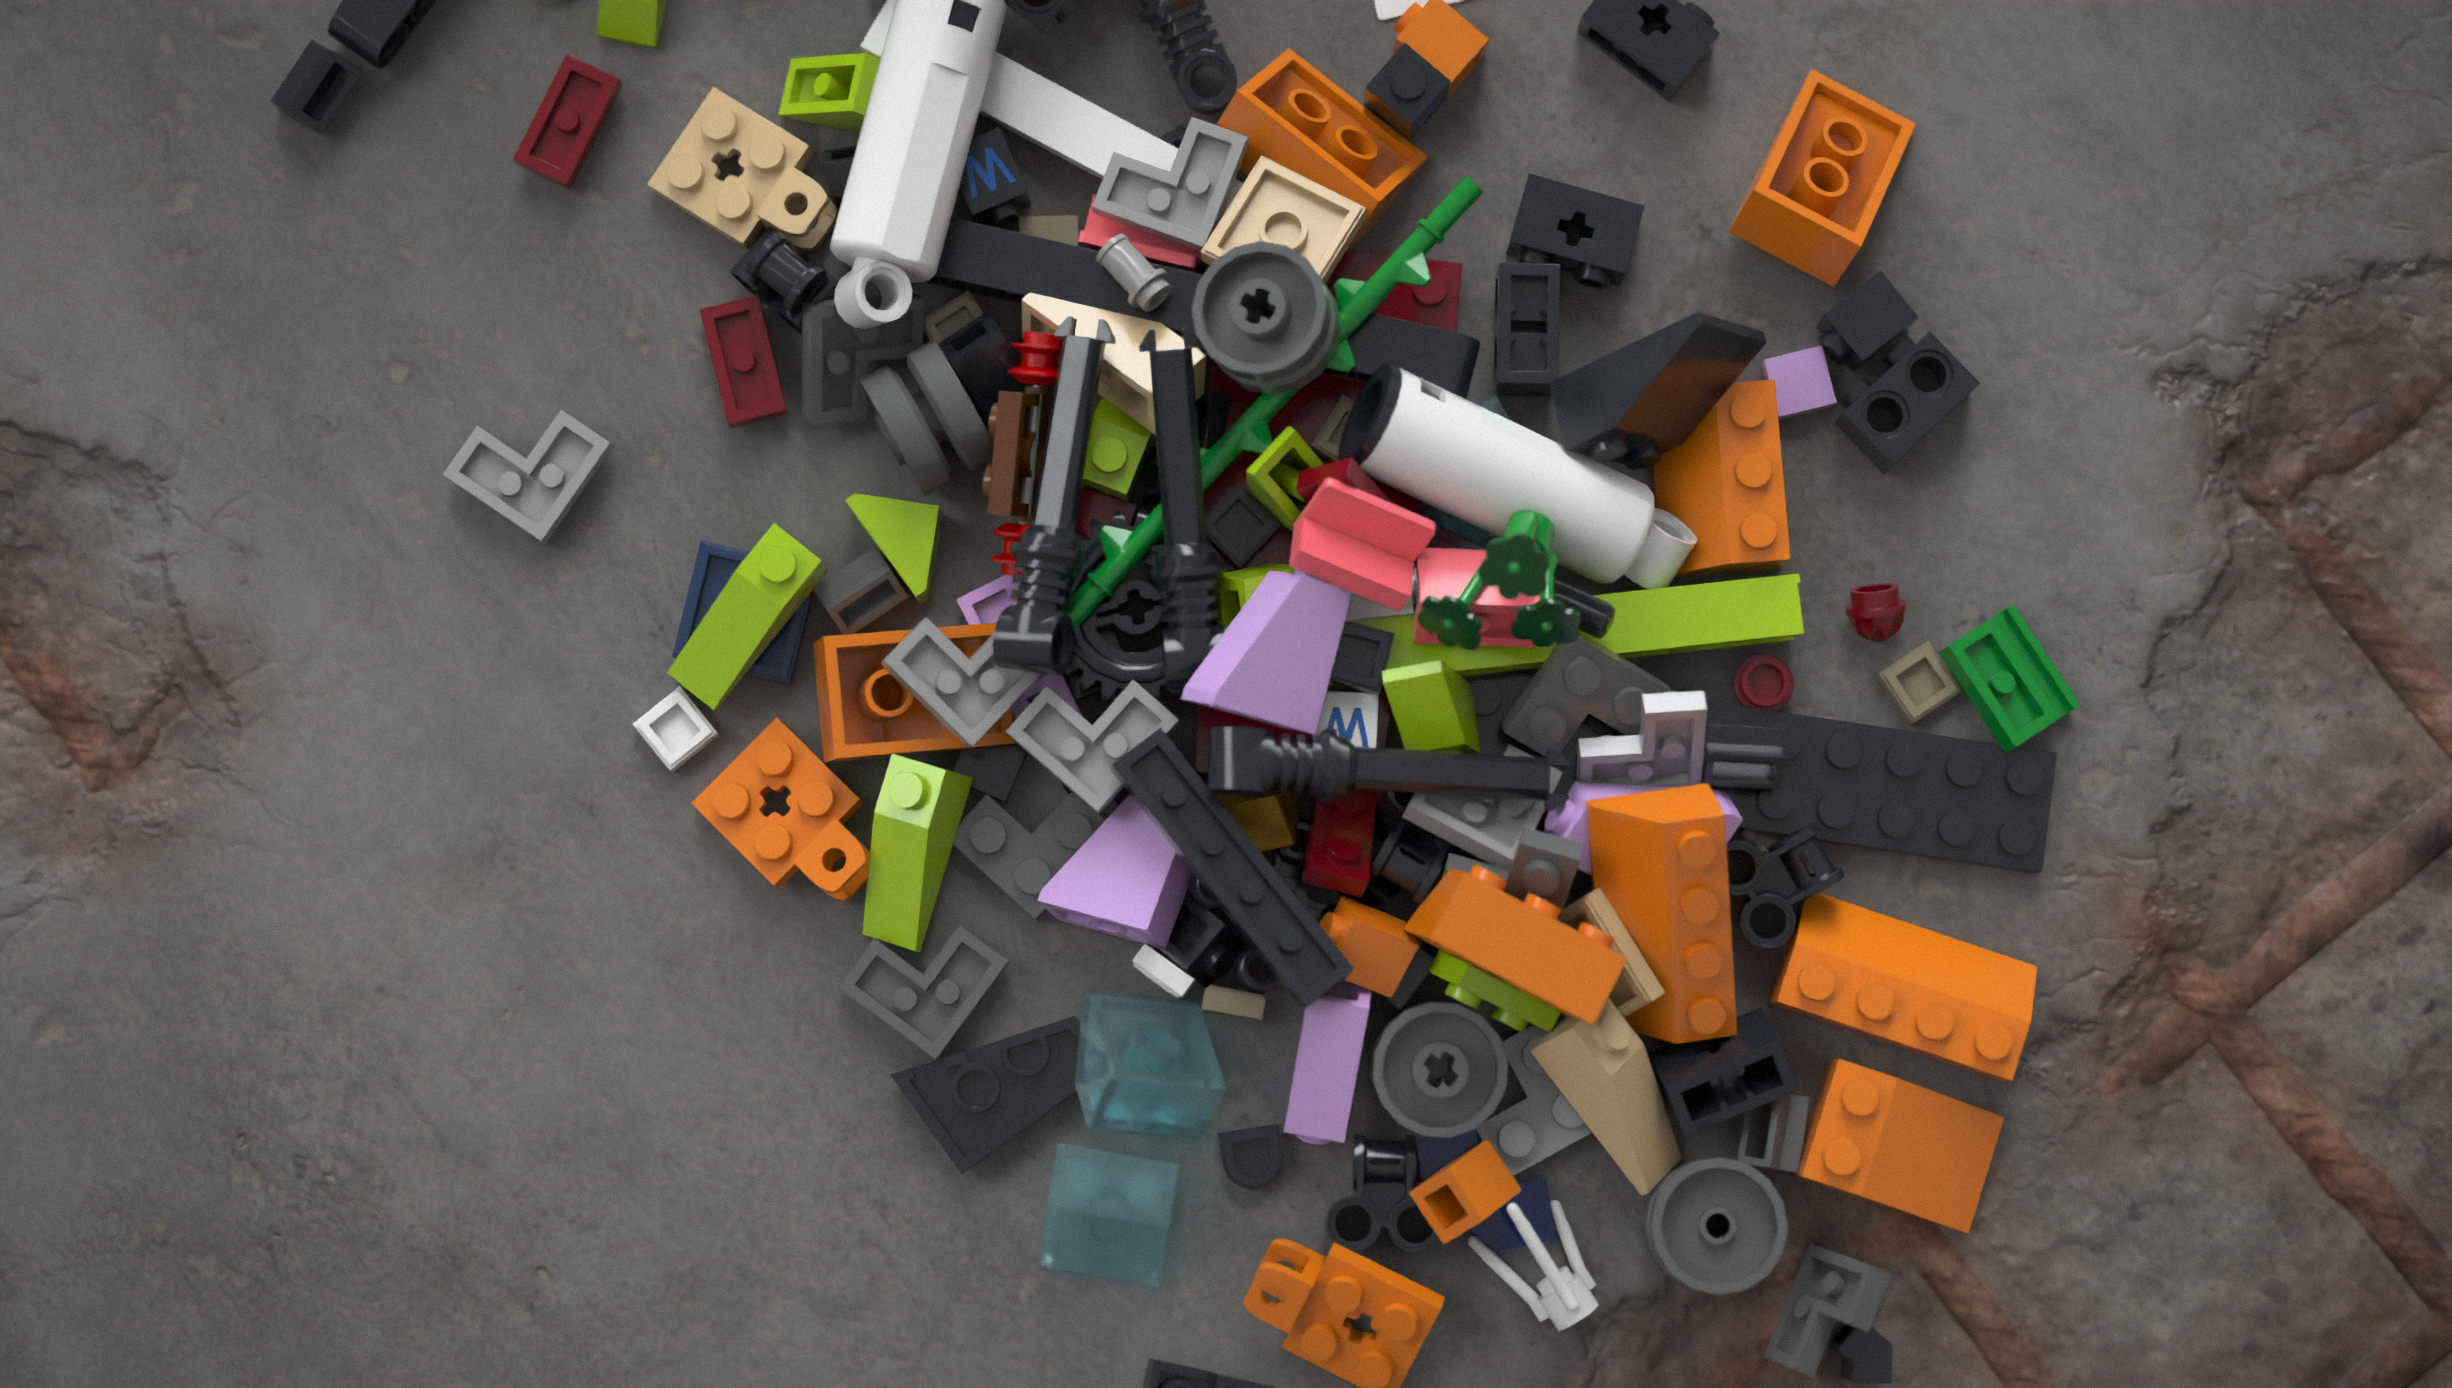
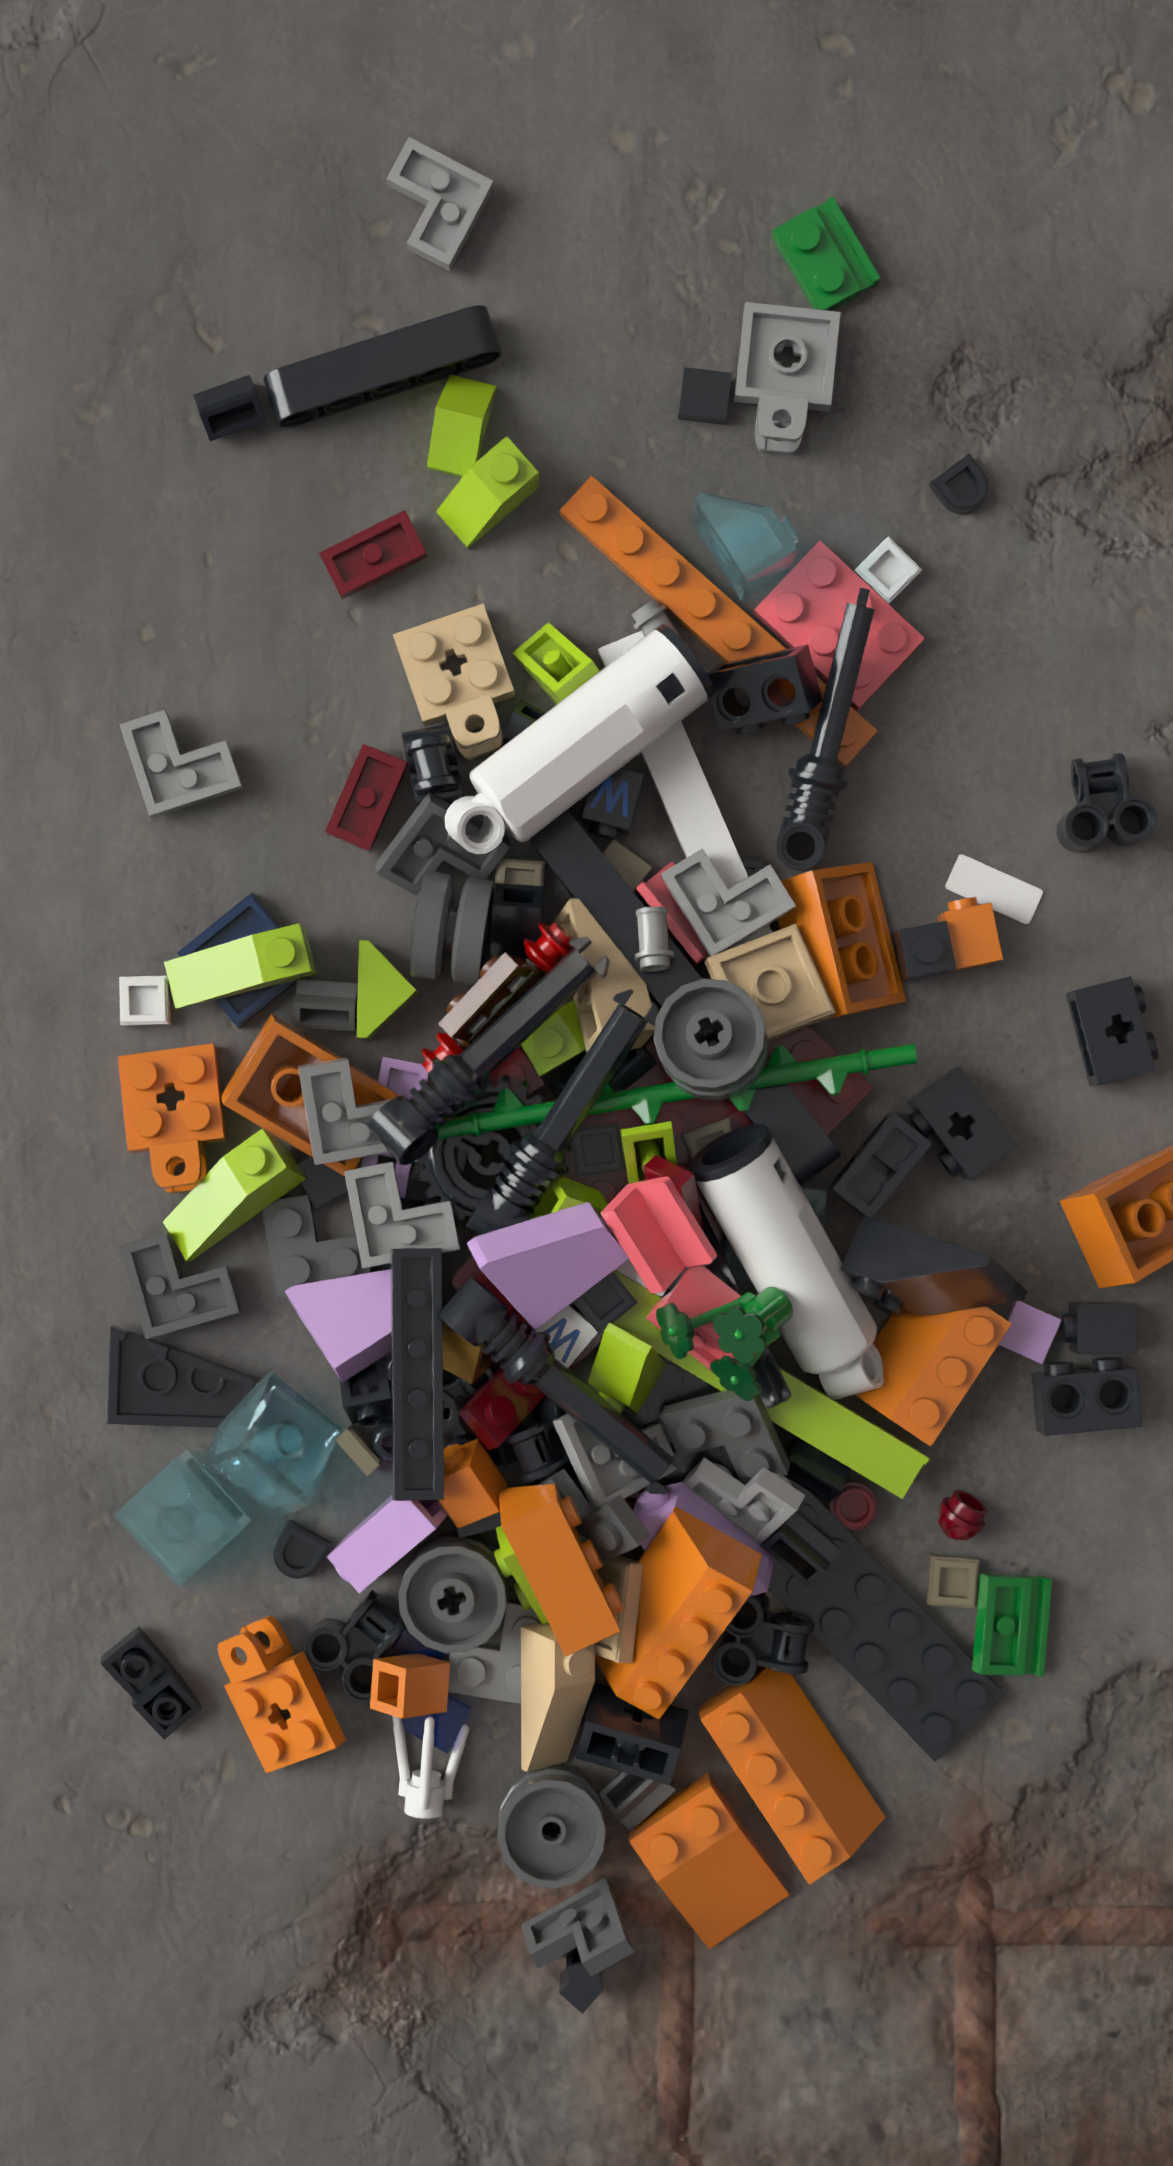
camera: 35 degrees right, 5 degrees up
(1162, 972) = (329, 1395): white tile -> none
(1699, 669) = (815, 1470): none -> black piece

